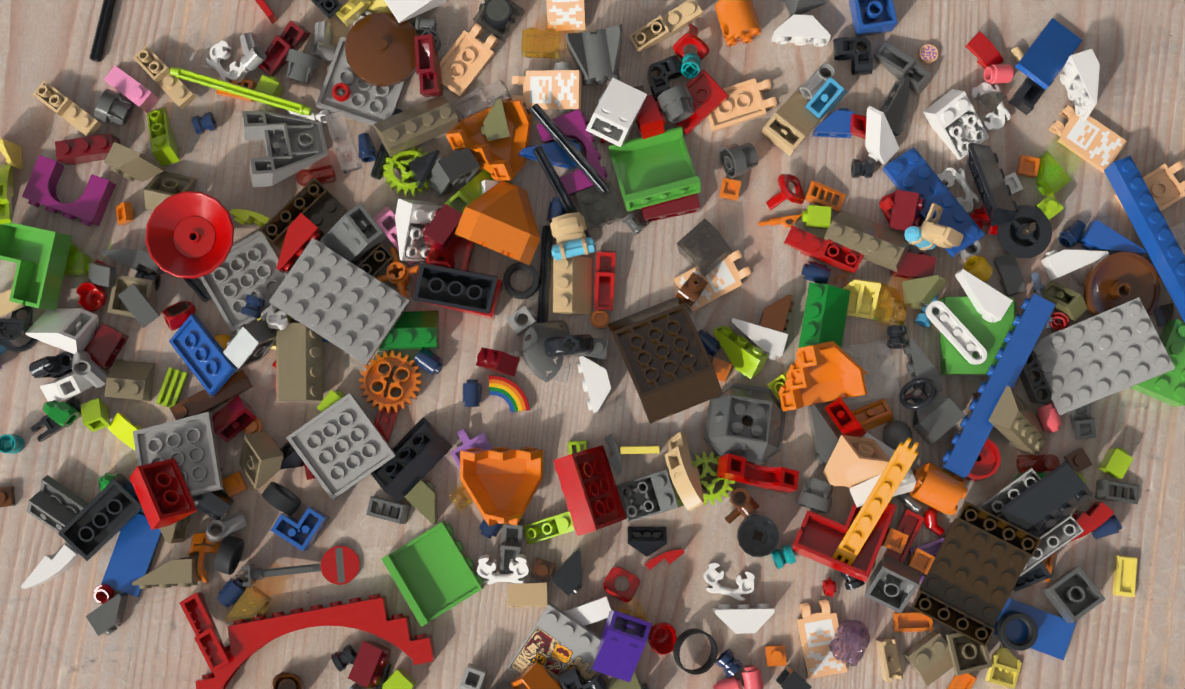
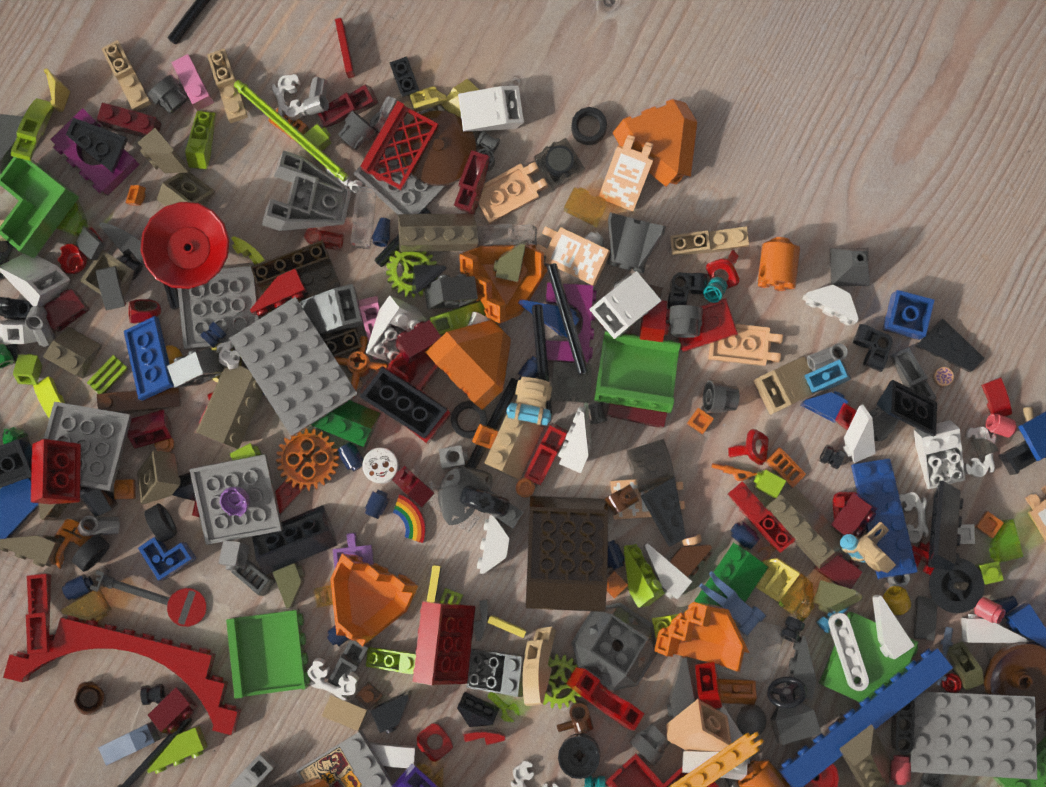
camera: 20 degrees right, 0 degrees up
(67, 179) = (98, 142): none -> black wing
(204, 123) = (245, 144): dark blue wheel -> none
(330, 63) = (383, 141): none -> red fence
(340, 447) = (234, 501): none -> medium lavender hair
(362, 497) = (234, 555): none -> light grey brick
(459, 357) = (380, 465): none -> white head
(542, 287) = (485, 436): none -> orange plate
(556, 440) = (434, 582): none -> light yellow tile
(631, 260) = (576, 451): none -> white slope
(669, 523) = (503, 706): none -> clear neon green bar
(736, 282) = (666, 511): none -> black wing
(770, 298) = (692, 540): none -> light nougat tile
(846, 341) = (739, 610): none -> medium blue flag
(911, 91) = (909, 407): none -> black slope
(922, 24) = (949, 345): none -> black wing
(1064, 240) = (989, 610): none -> coral brick

